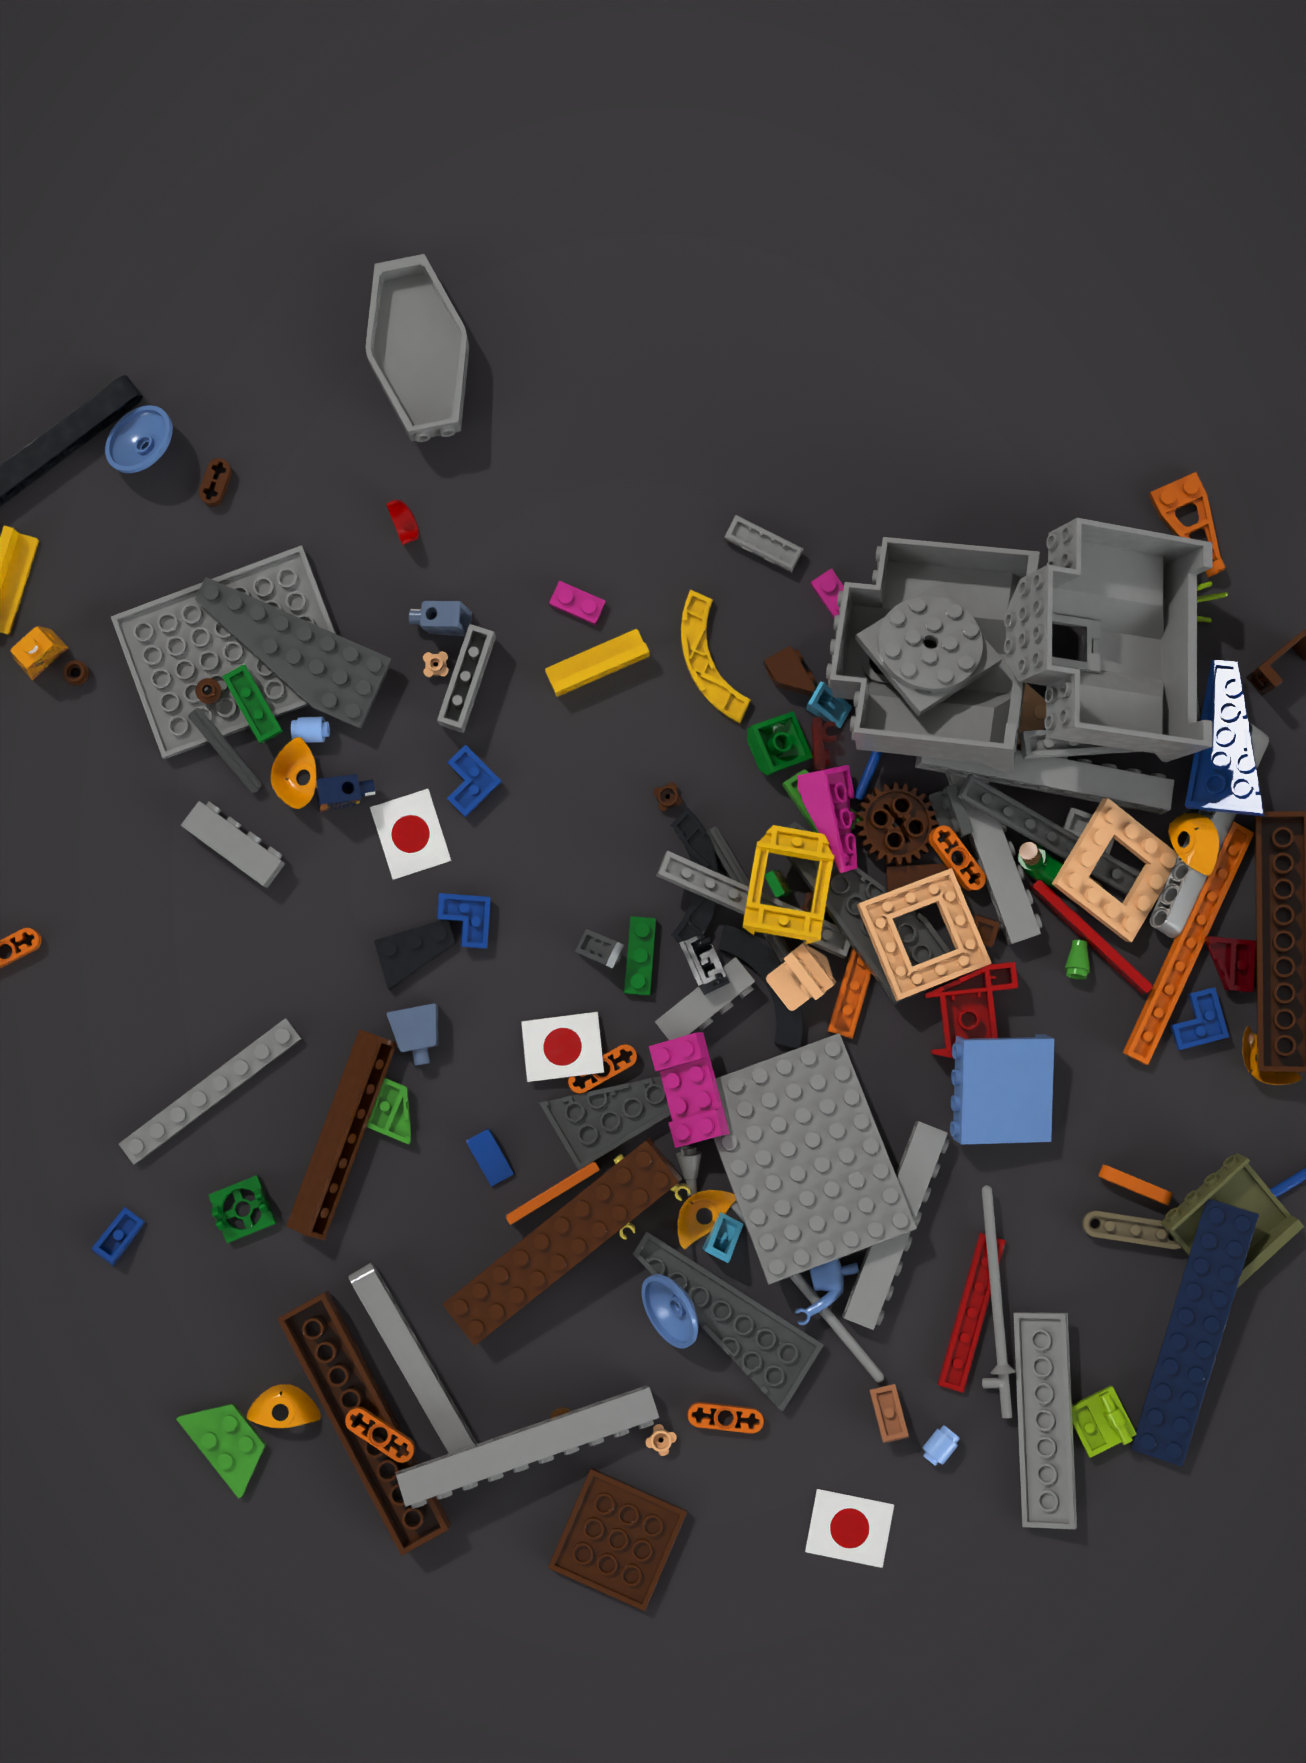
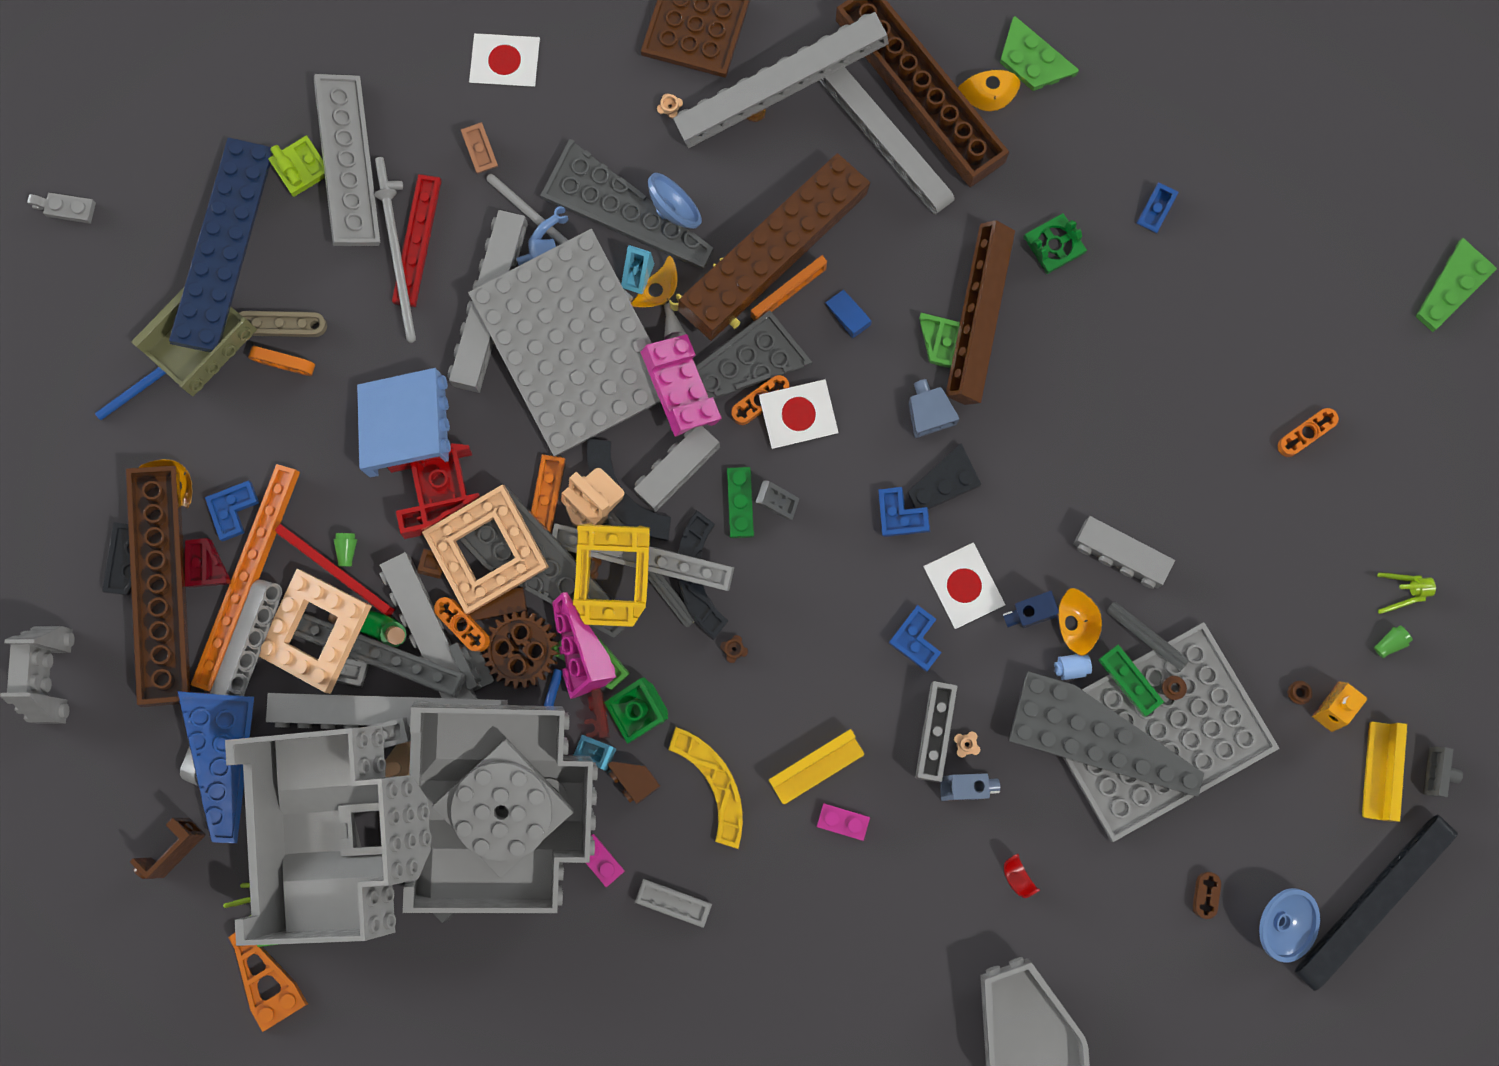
camera: 175 degrees right, 5 degrees down
(210, 1091) = (1101, 337): light grey plate -> none
(367, 1417) = (917, 83): orange beam -> none
(704, 963) = (681, 497): hinge -> none
(746, 1411) = (624, 137): orange beam -> none
(778, 883) = (622, 578): green tile -> none
(940, 1445) = (433, 129): light blue brick -> none
(1203, 844) = (234, 662): light orange piece -> none

